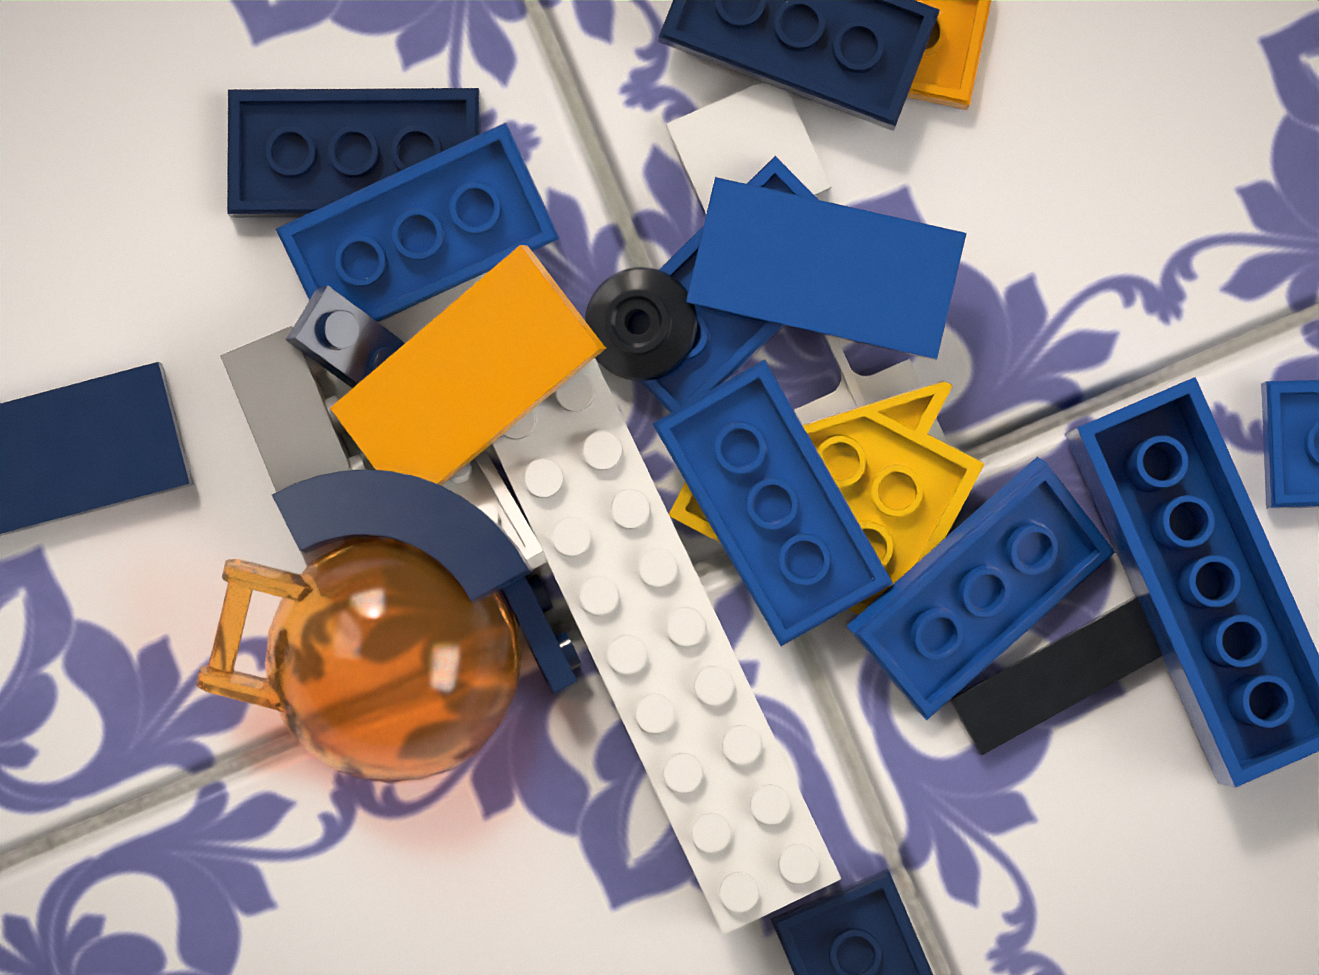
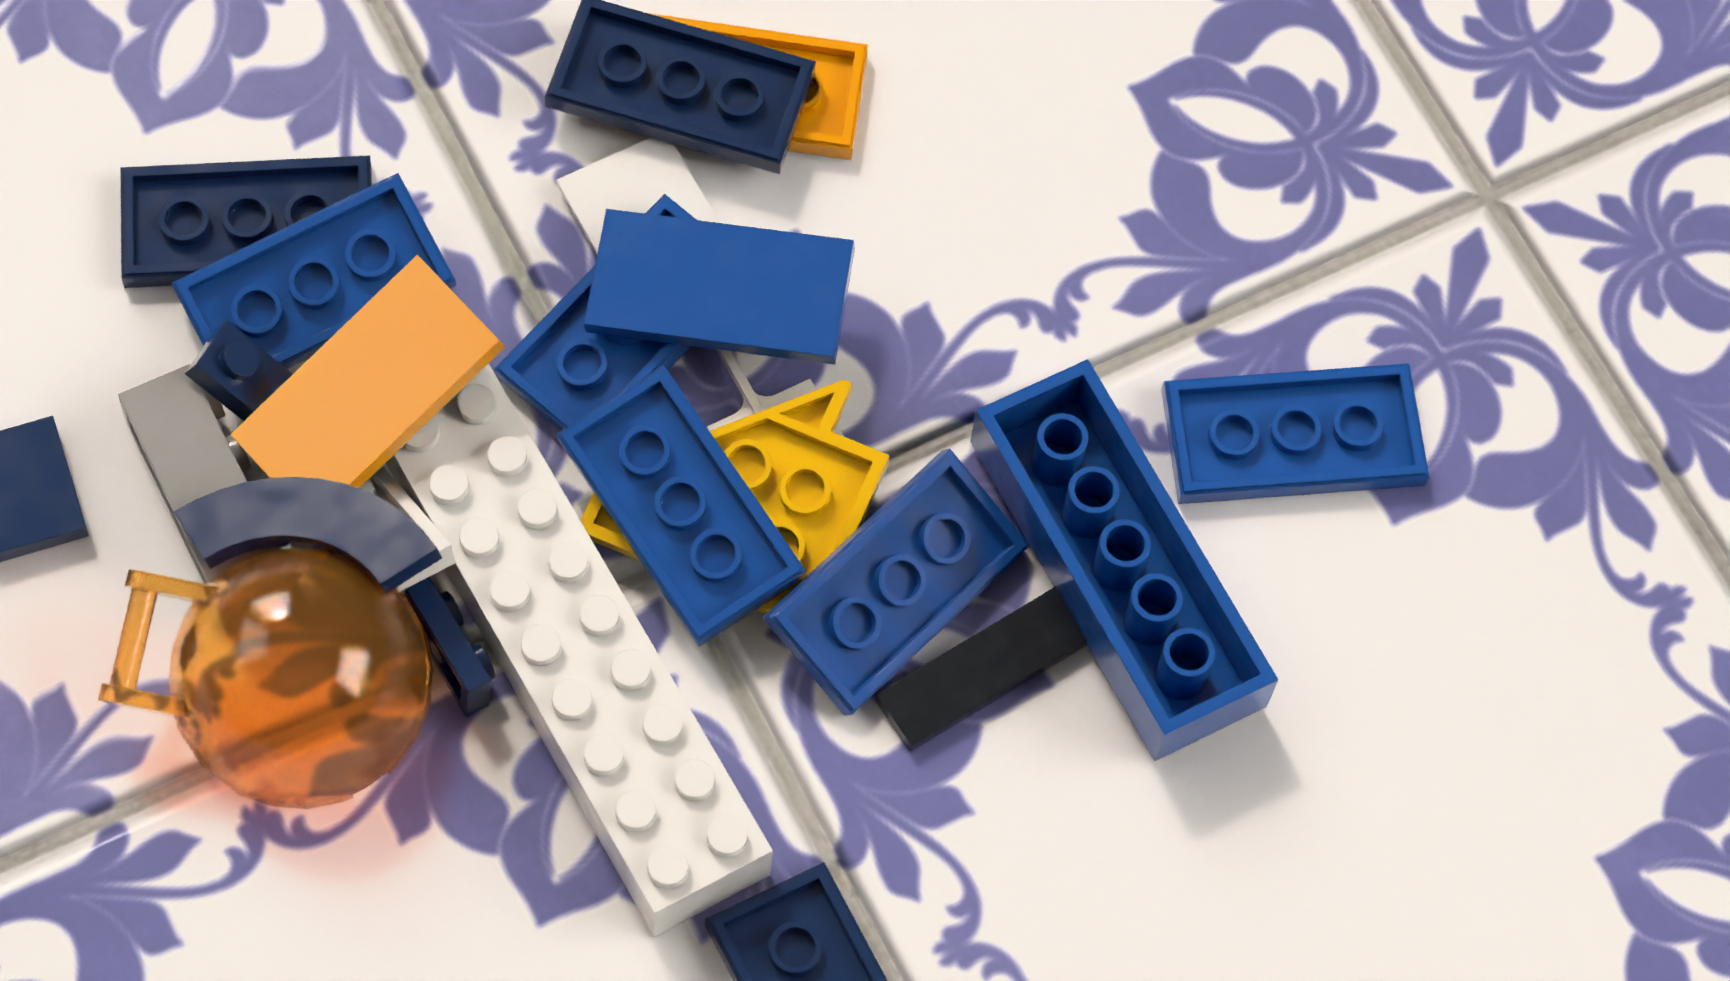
camera: 10 degrees left, 20 degrees down
(670, 328) = (557, 373): black piece -> none

